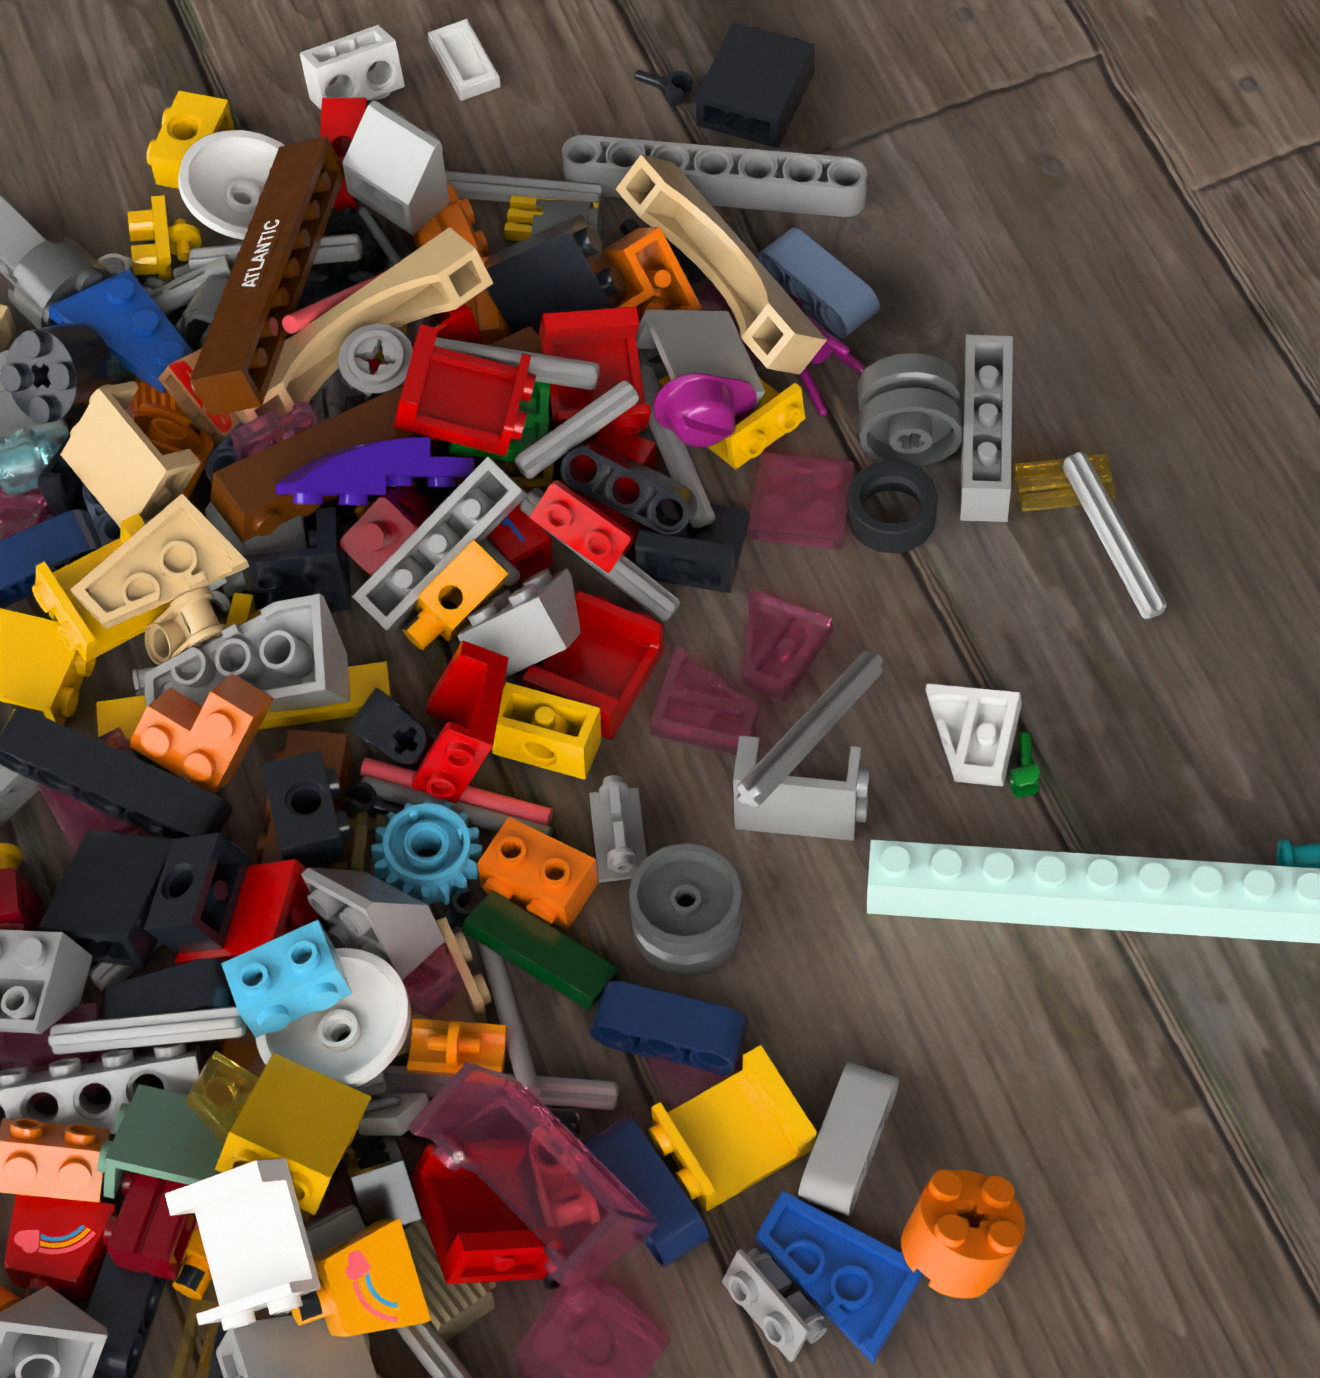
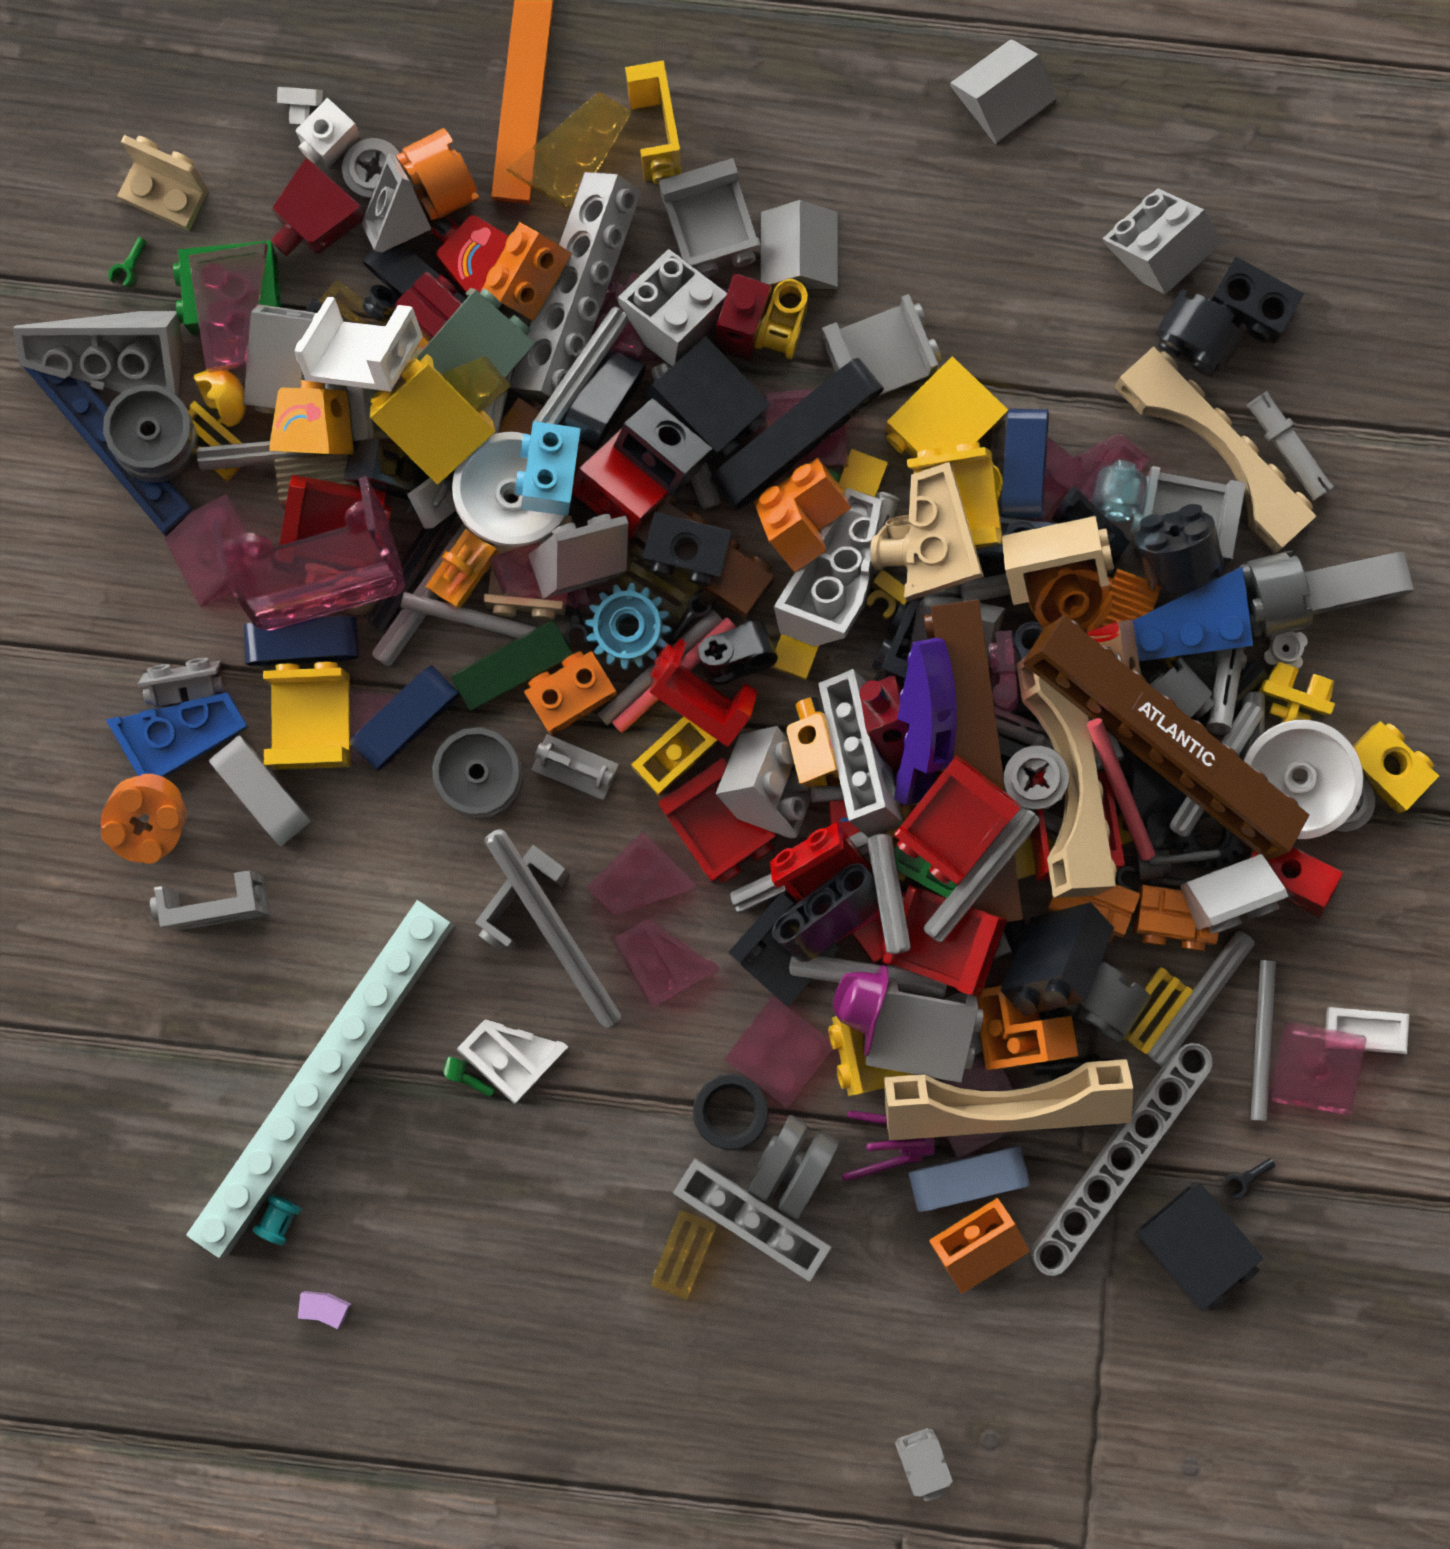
camera: 120 degrees right, 25 degrees up
(171, 1324) = (380, 303): none -> black bush
(350, 61) = (1389, 927): white brick -> none
(524, 72) = (1317, 1068): none -> clear pink plate
(524, 128) = (1263, 1040): none -> light grey bar
(877, 238) = (979, 1245): none -> orange brick
(993, 1064) = (248, 904): none -> light grey panel
(1113, 181) = (924, 1464): none -> light grey brick
(1114, 535) = (611, 1257): light grey axle -> none

